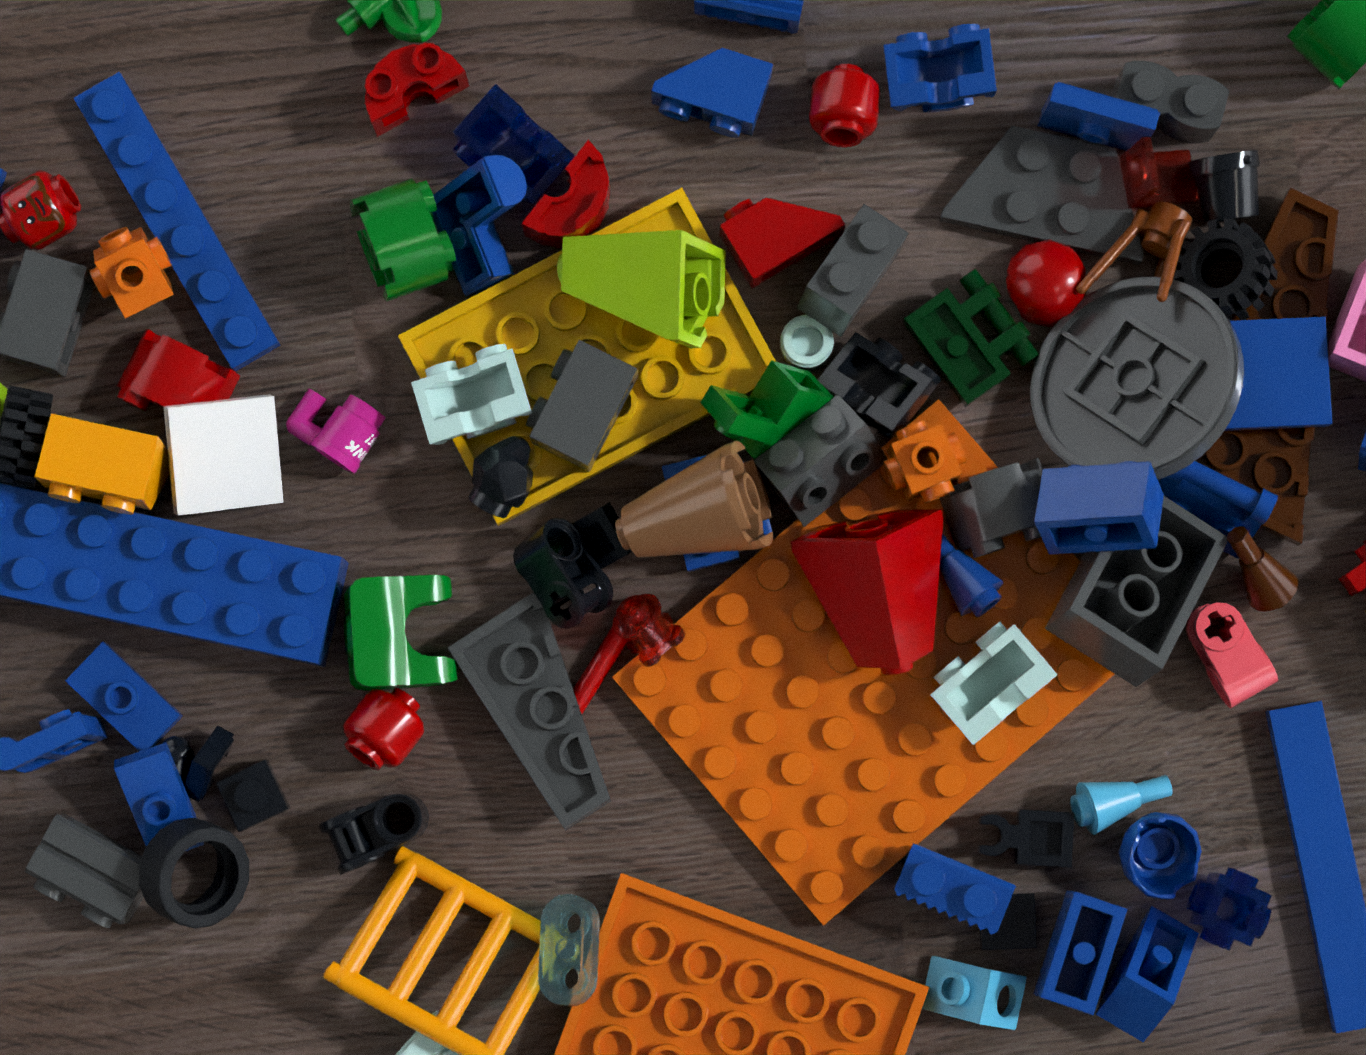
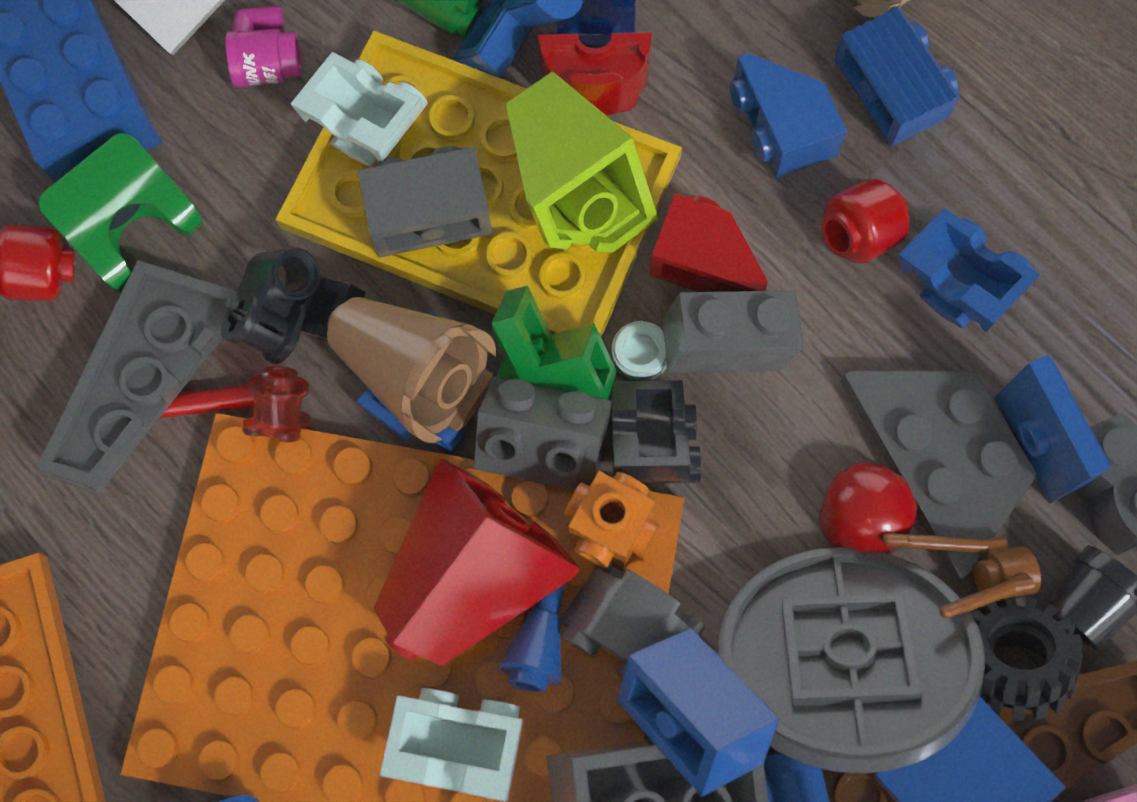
camera: 55 degrees right, 10 degrees down
(502, 476) = (310, 184): black rock -> none
(957, 345) = (744, 480): dark green plate -> none
(1156, 176) = (1047, 528): clear red bracket -> none

